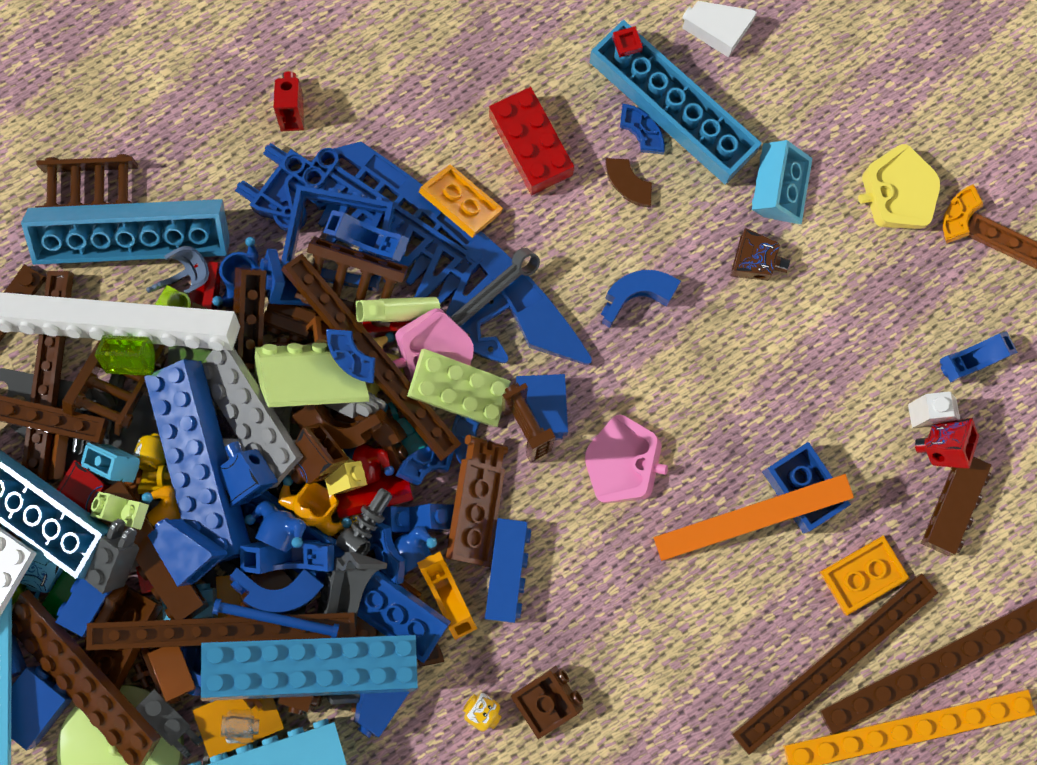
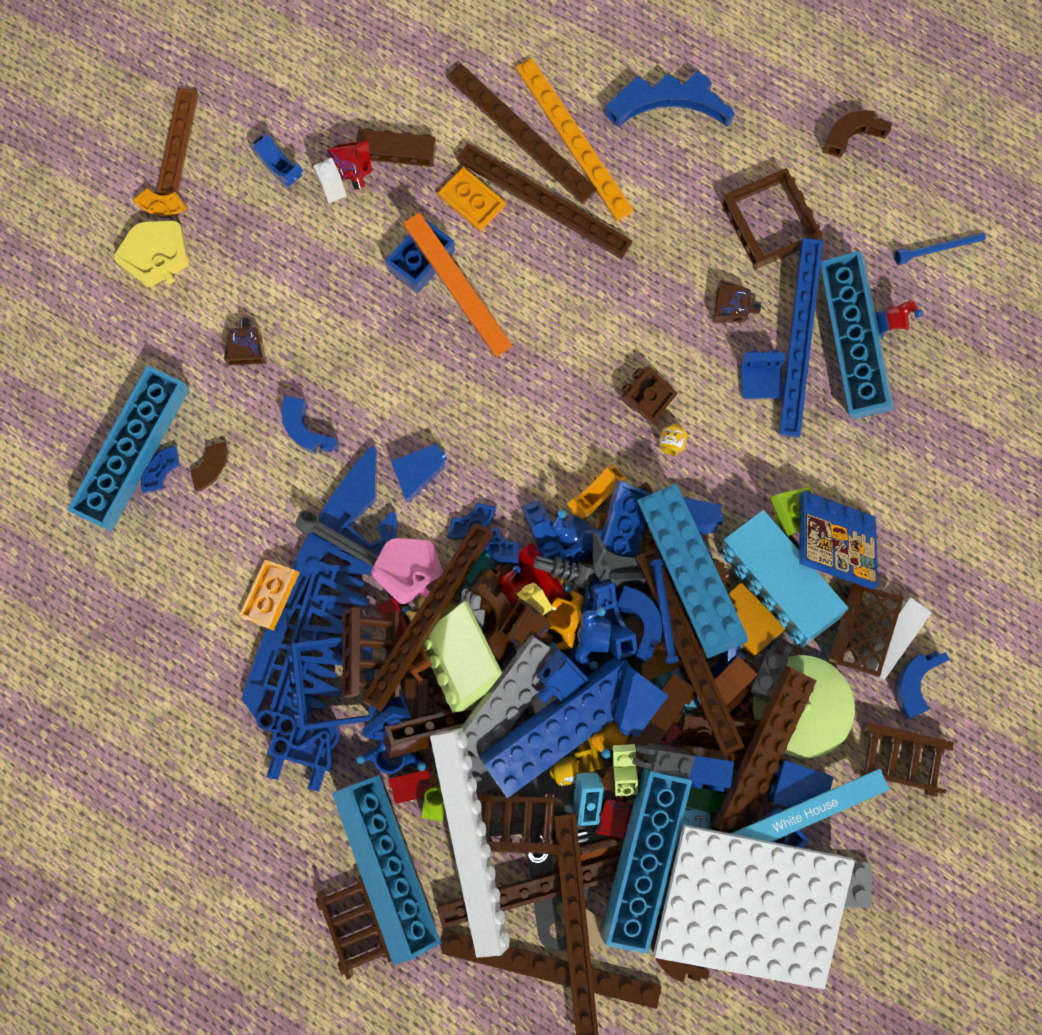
camera: 105 degrees left, 0 degrees up
(126, 355) = (495, 817): clear neon green brick -> none
(188, 257) = (392, 805): sand blue helmet -> none
(239, 726) = (753, 612): clear head -> none
(287, 96) = (223, 773): red torso -> none
(349, 357) = (436, 629): blue tile -> none
(366, 237) = (329, 650): blue arch -> none
(394, 309) = (382, 608): yellowish green piece -> none
(458, 388) = (430, 540): yellowish green plate -> none
(477, 502) = (516, 495): dark orange hinge -> none
(506, 570) = (561, 457): blue brick -> none
(531, 140) = (197, 555): red brick -> none
(538, 441) = (452, 462): reddish brown fence -> none
(624, 461) = (444, 398): bright pink animal -> none
(627, 41) = (87, 497): red plate -> none
(718, 24) = (48, 435): white slope -> none
(782, 182) = (174, 345): medium azure slope -> none

